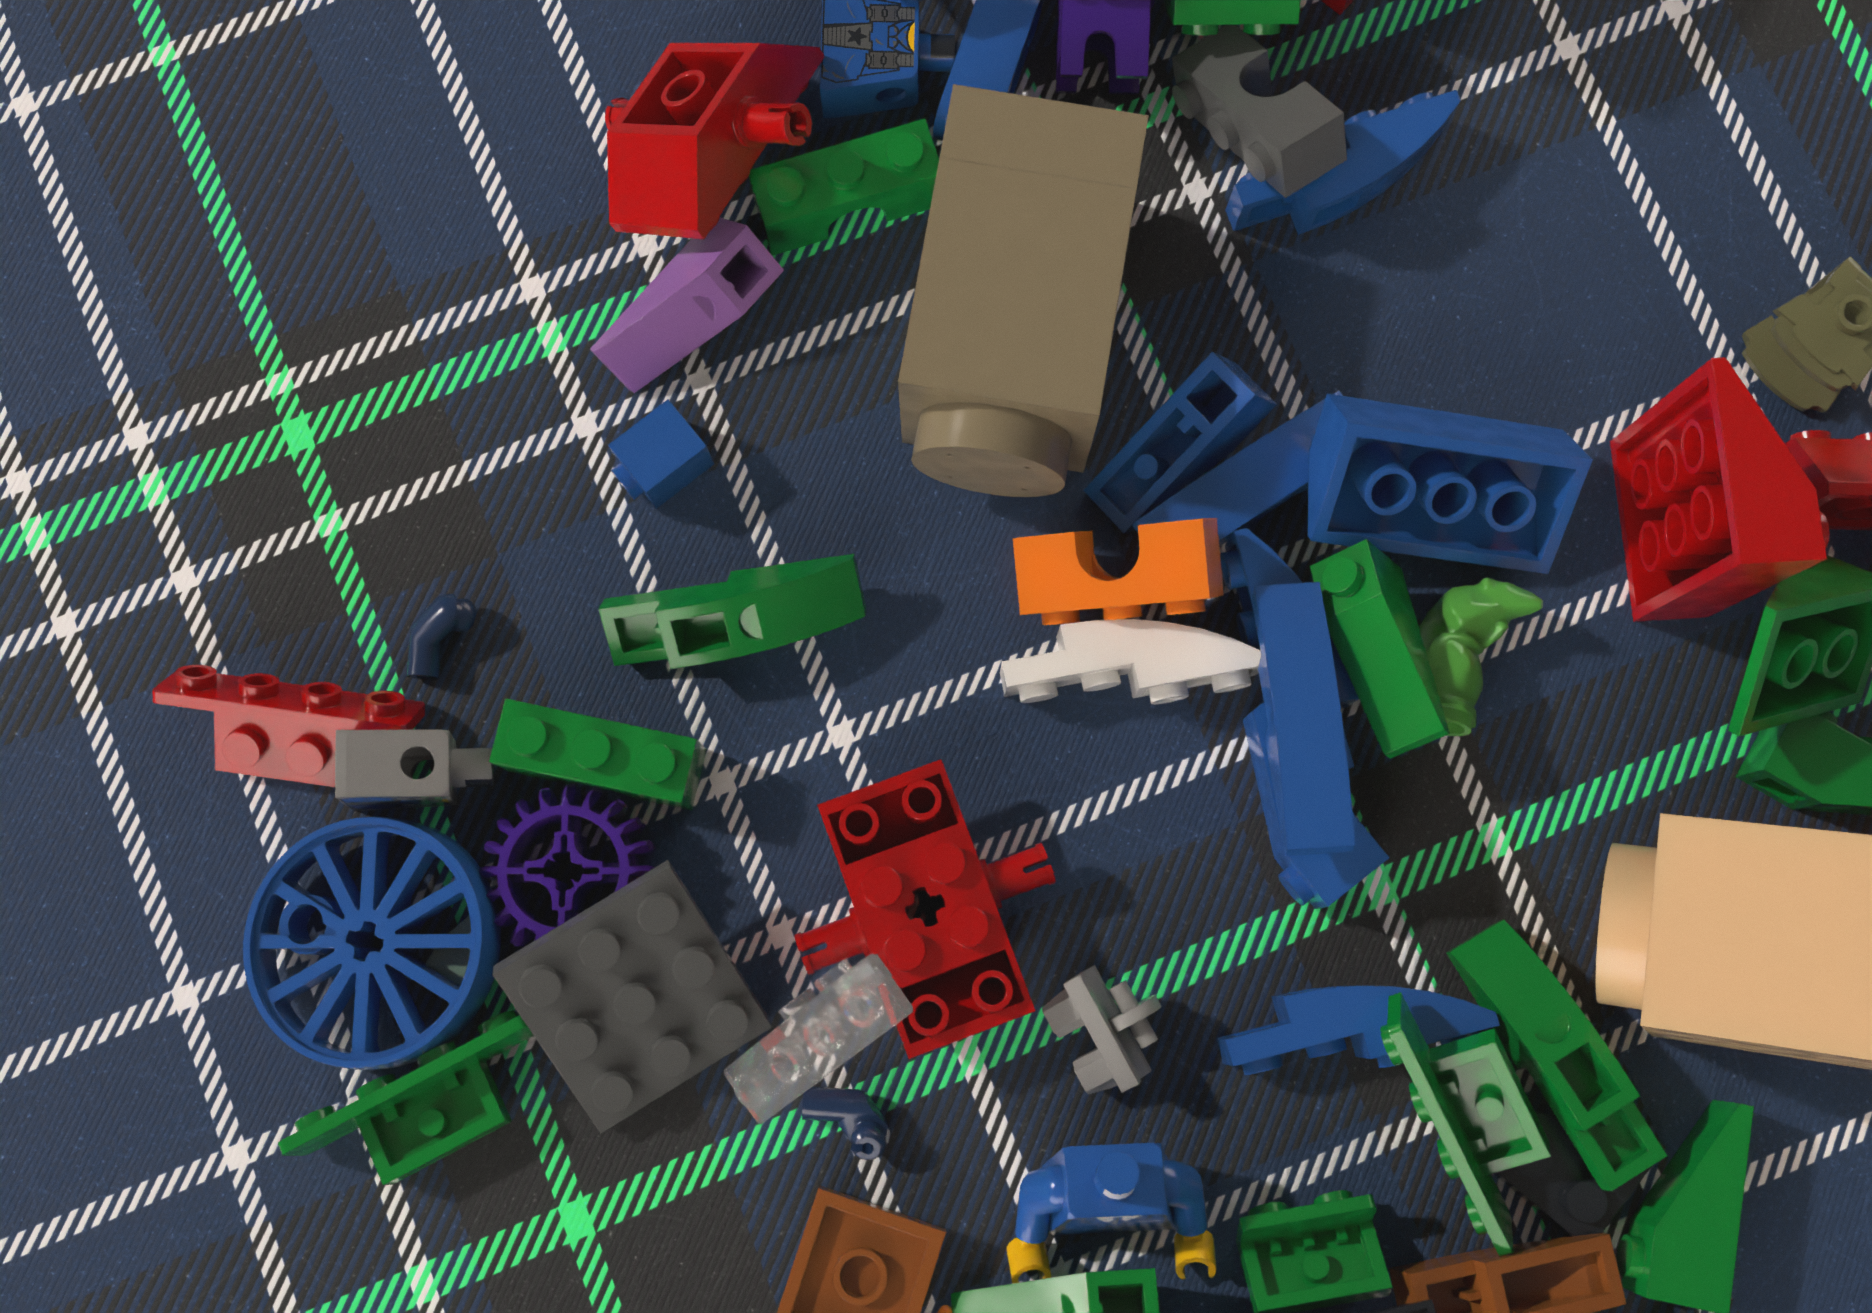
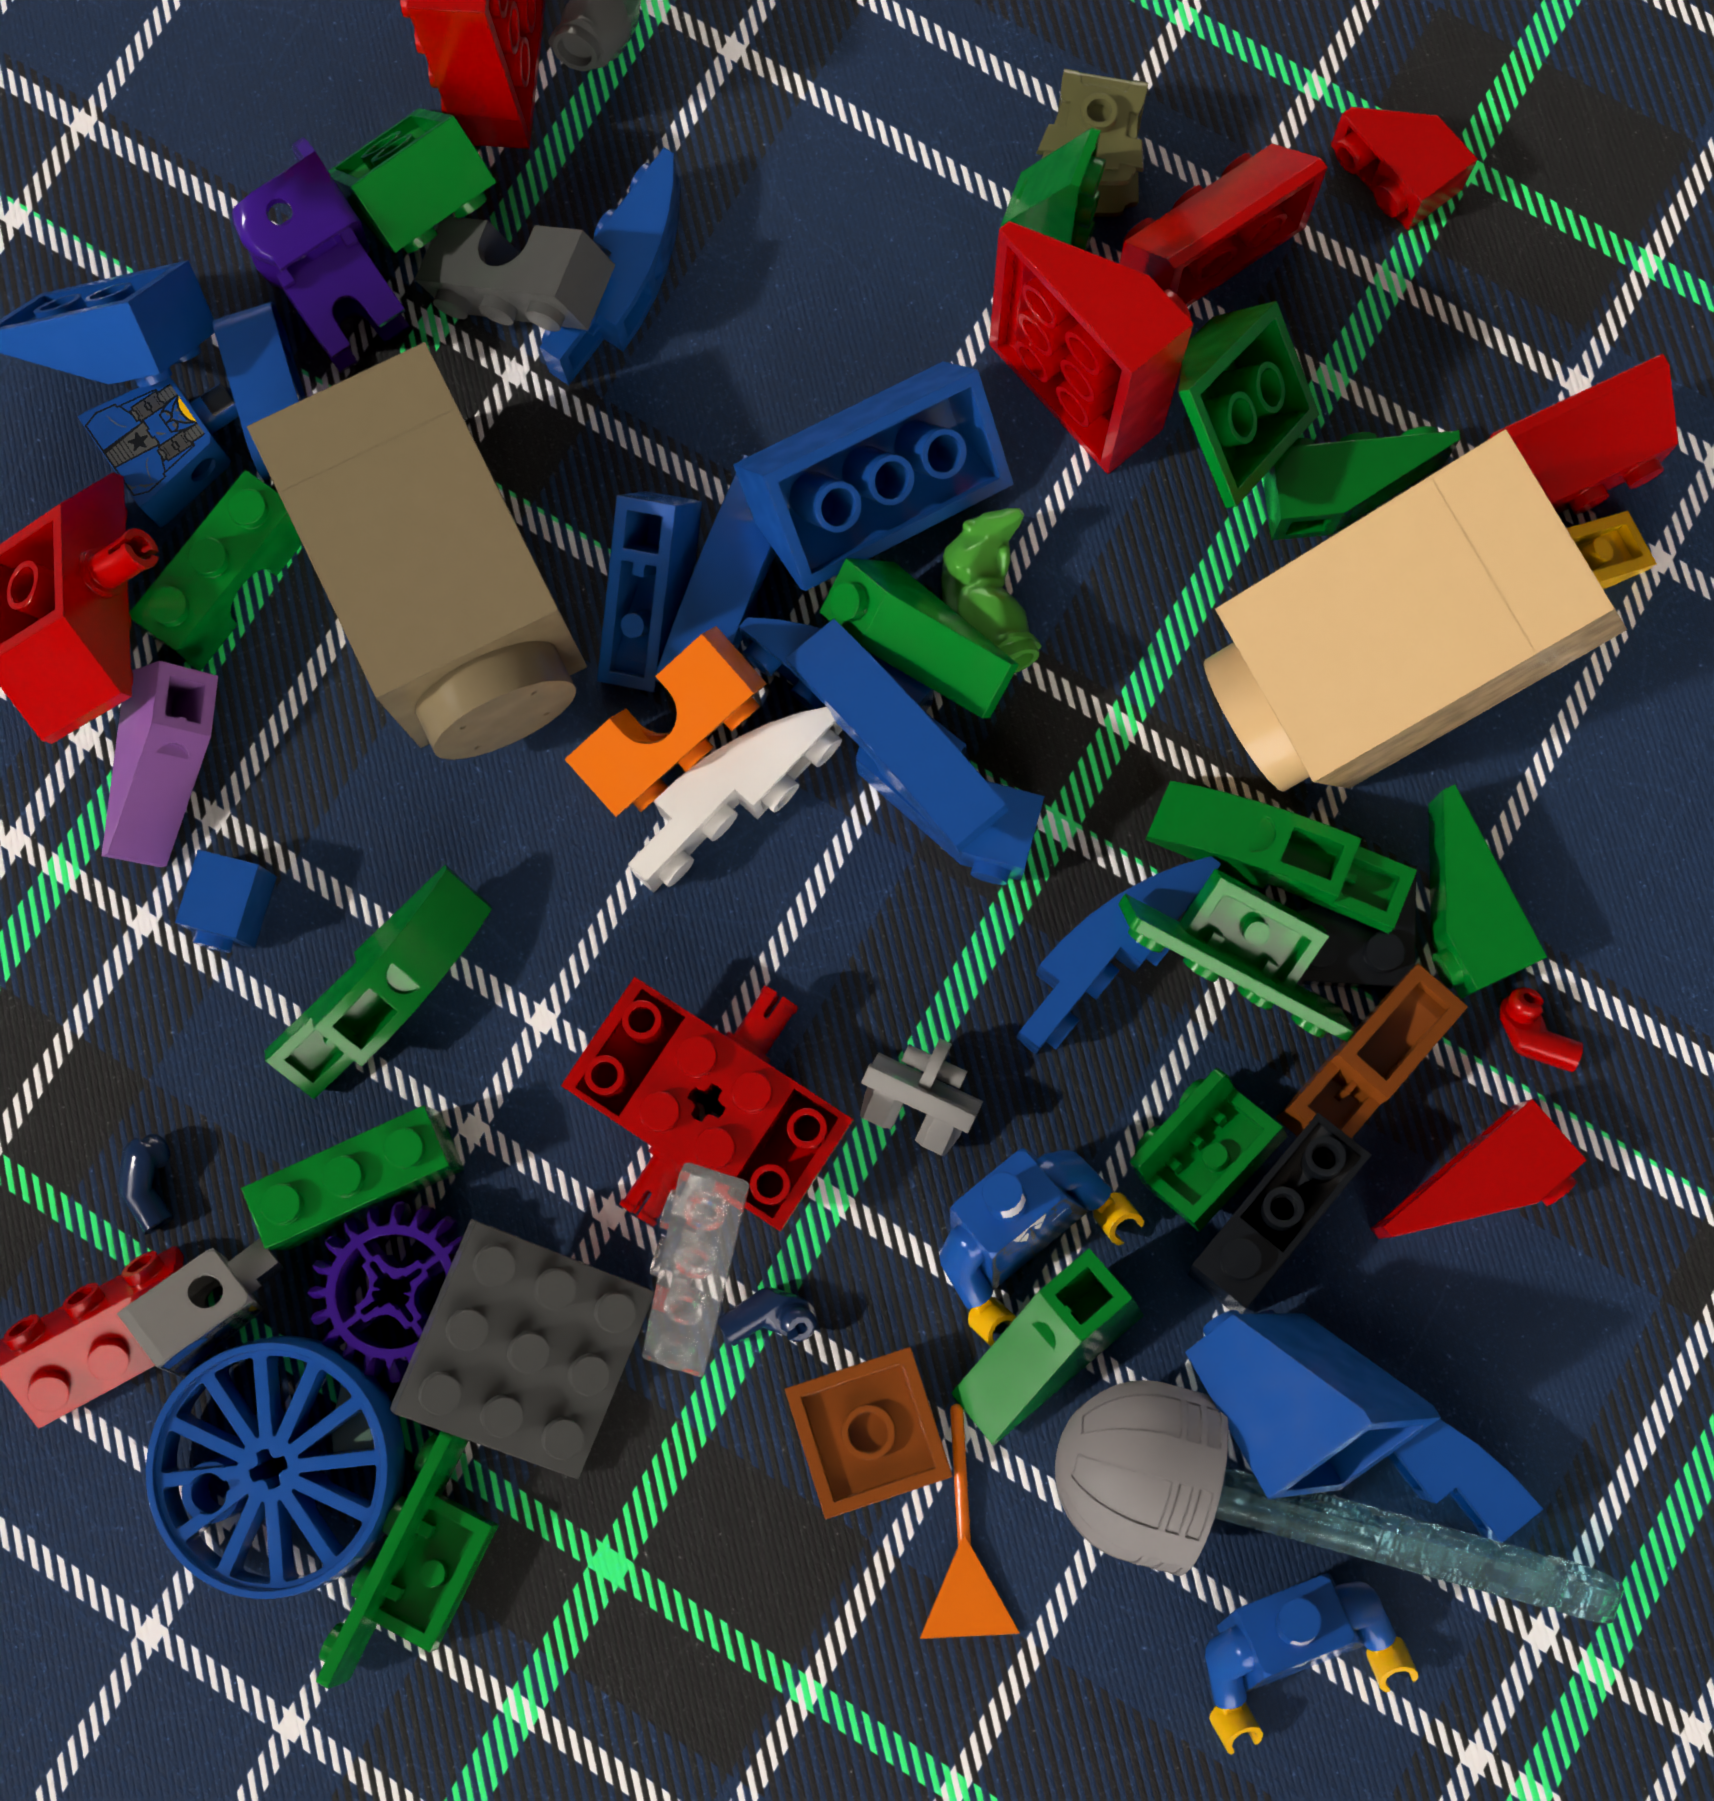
camera: 30 degrees left, 0 degrees up
(1772, 355) = (1061, 192): none -> green slope

